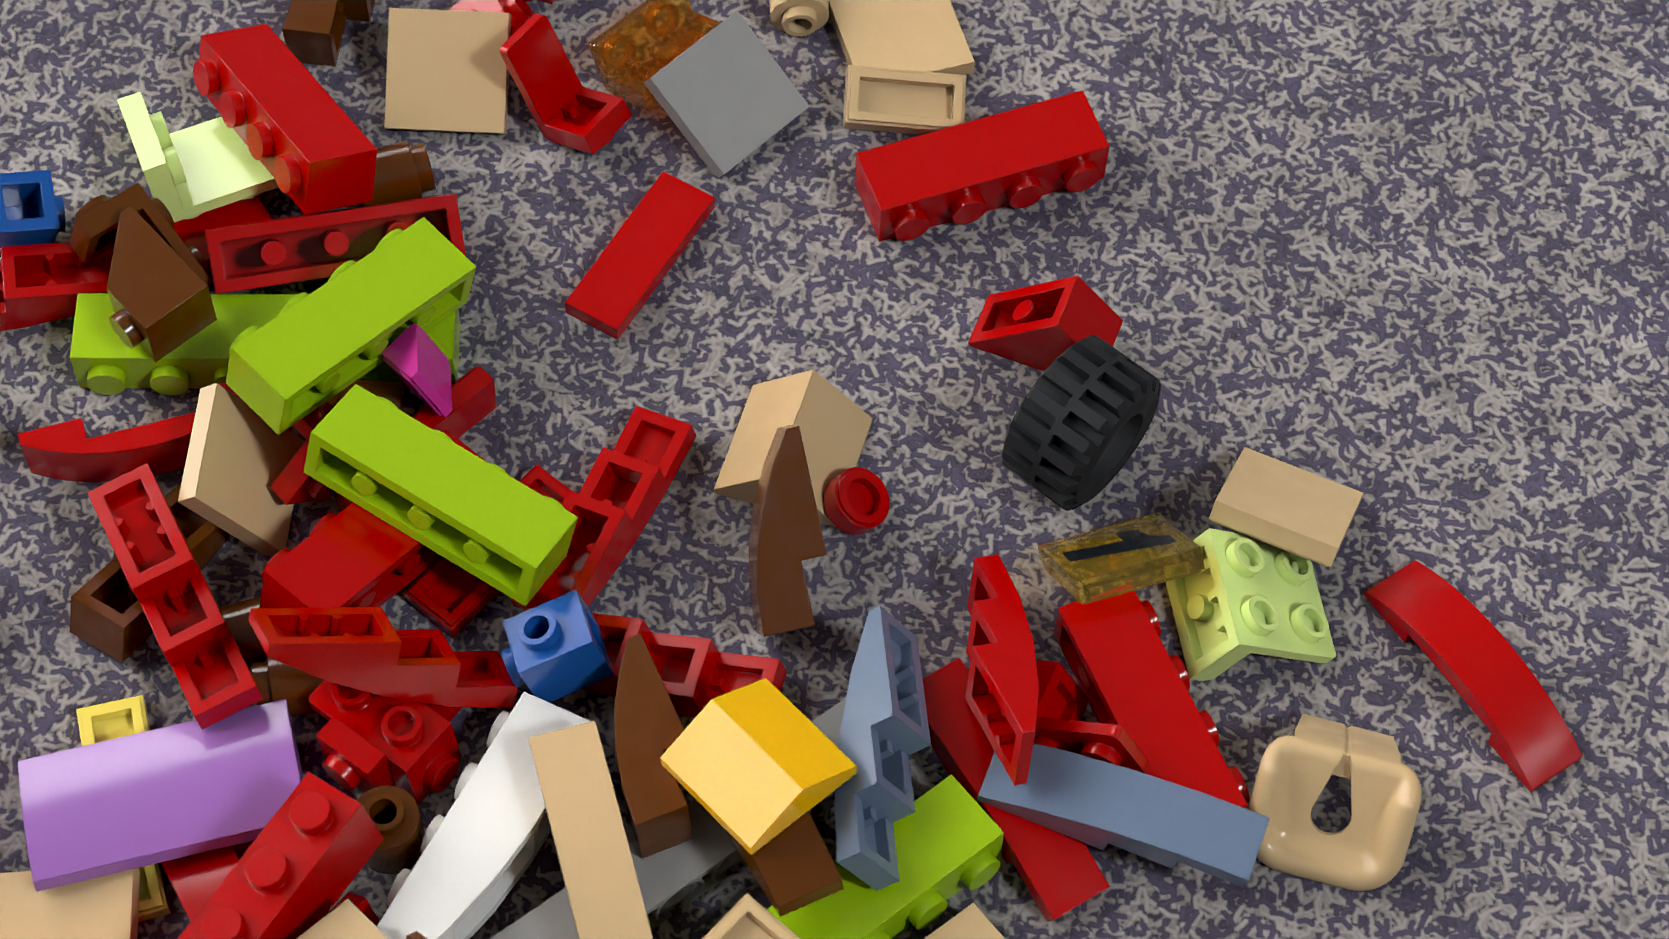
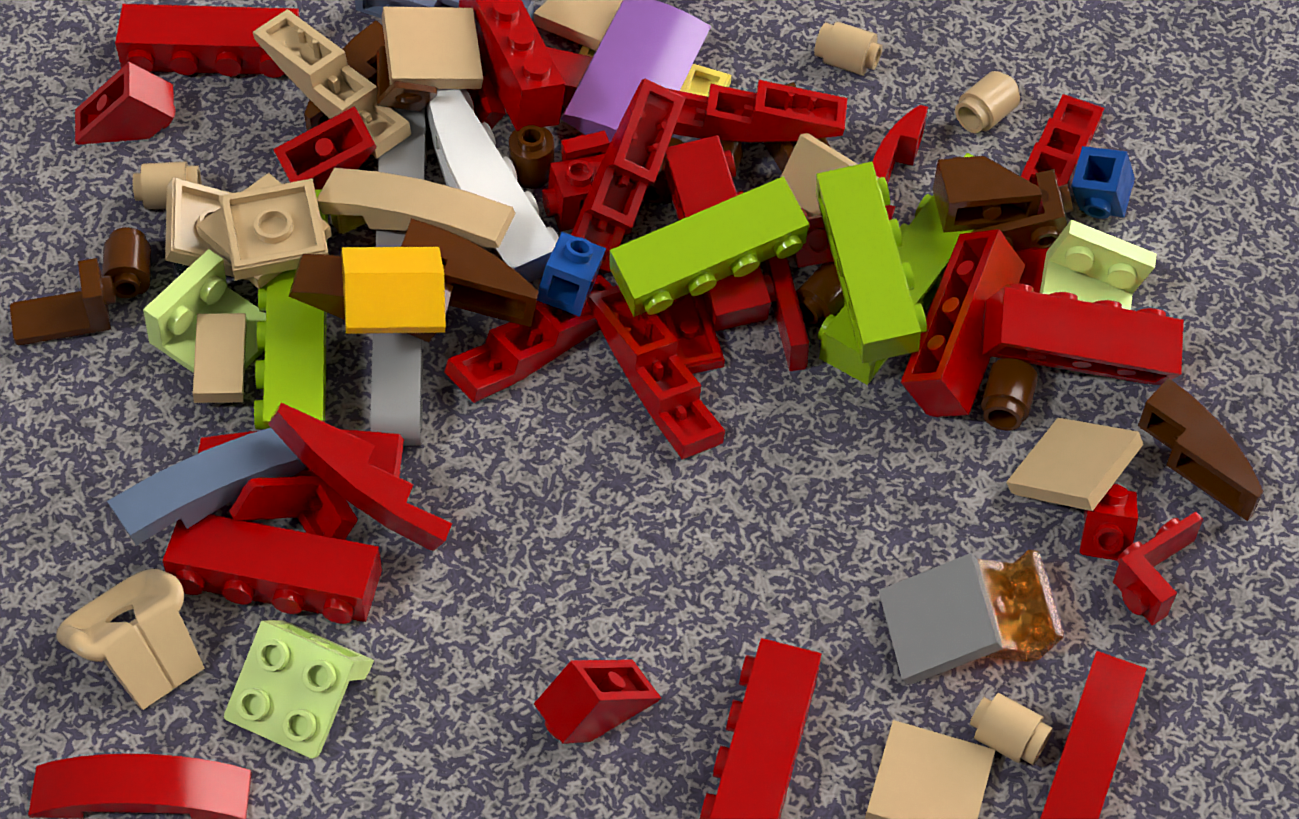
camera: 125 degrees right, 5 degrees down
(421, 368) = (812, 294): dark pink slope -> none
(554, 93) = (1005, 525): red bracket -> none
(640, 255) = (848, 508): red tile -> none
(782, 536) = (548, 425): reddish brown slope -> none
(829, 426) = (623, 501): tan slope -> none
(856, 501) = (559, 509): red tile -> none
(878, 732) = (364, 373): sand blue slope -> none
(902, 100) = (860, 739): tan tile -> none
(1081, 422) = (492, 638): black tyre -> none
(1121, 558) = (386, 612): clear yellow tile -> none
(1286, 507) = (340, 745): tan tile -> none

